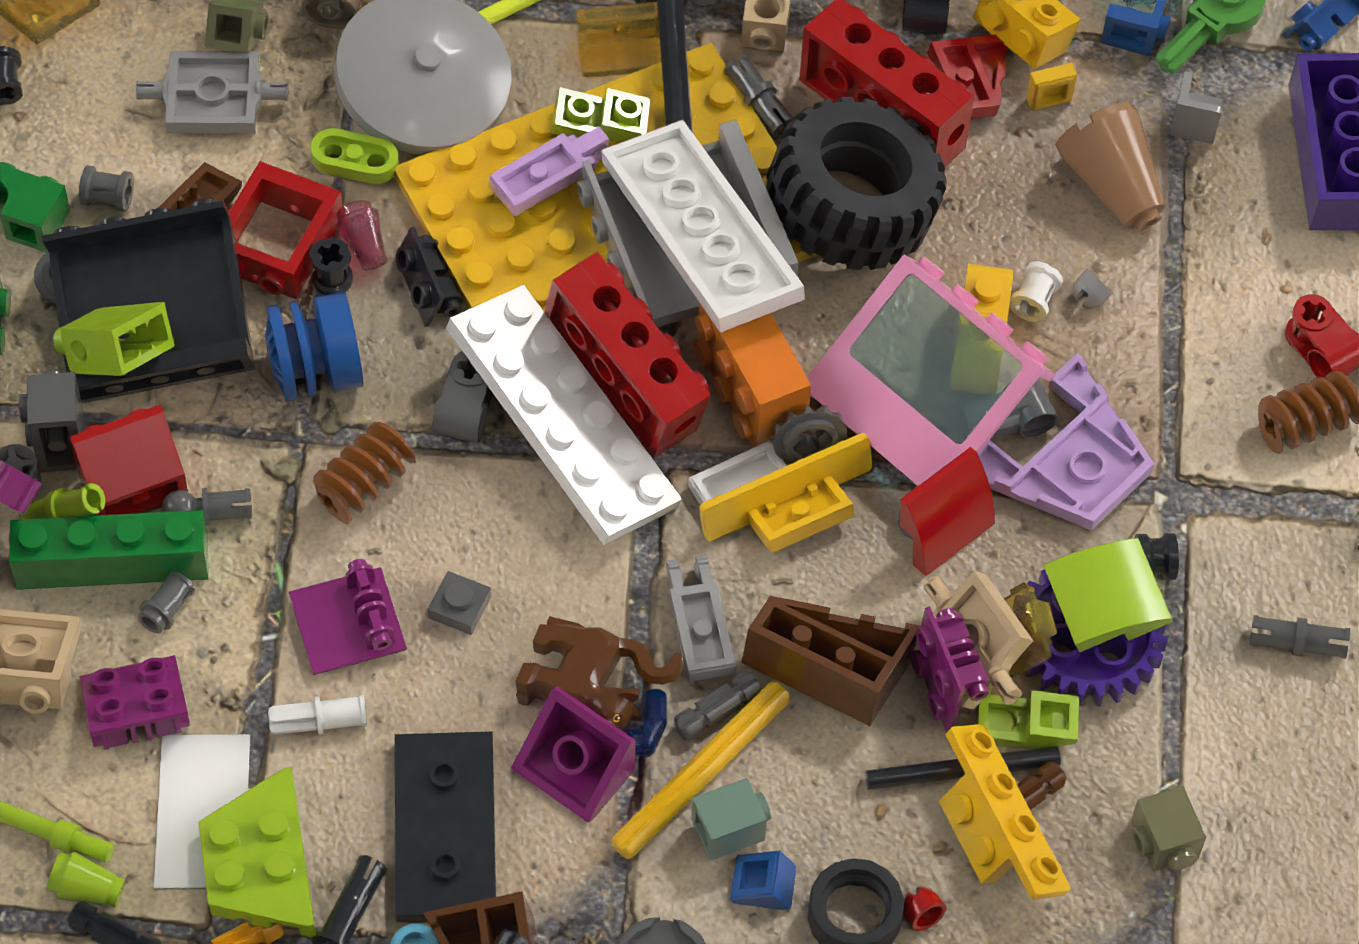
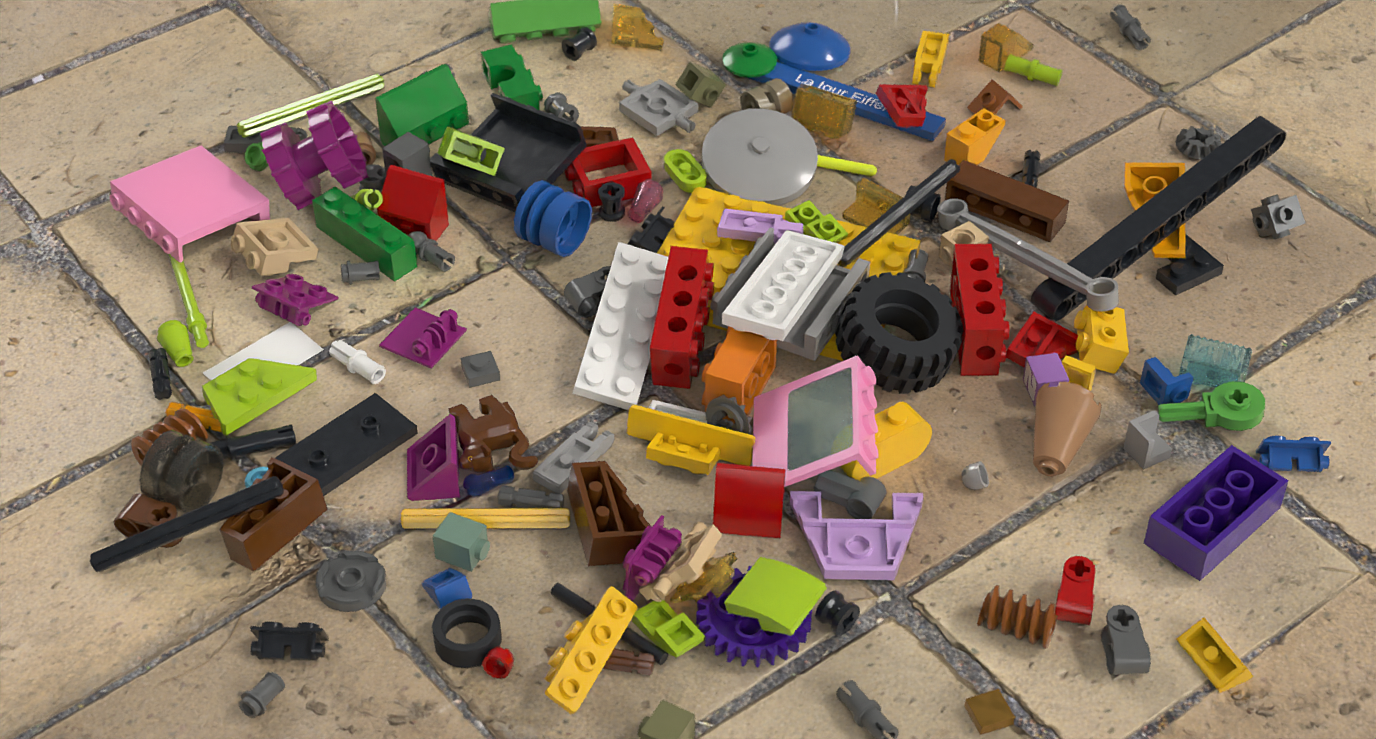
camera: 50 degrees right, 15 degrees down
(359, 470) = (506, 284): dark orange piece -> none
(1030, 116) = (1043, 370): none -> medium lavender brick
(1035, 292) = (940, 454): white bush -> none

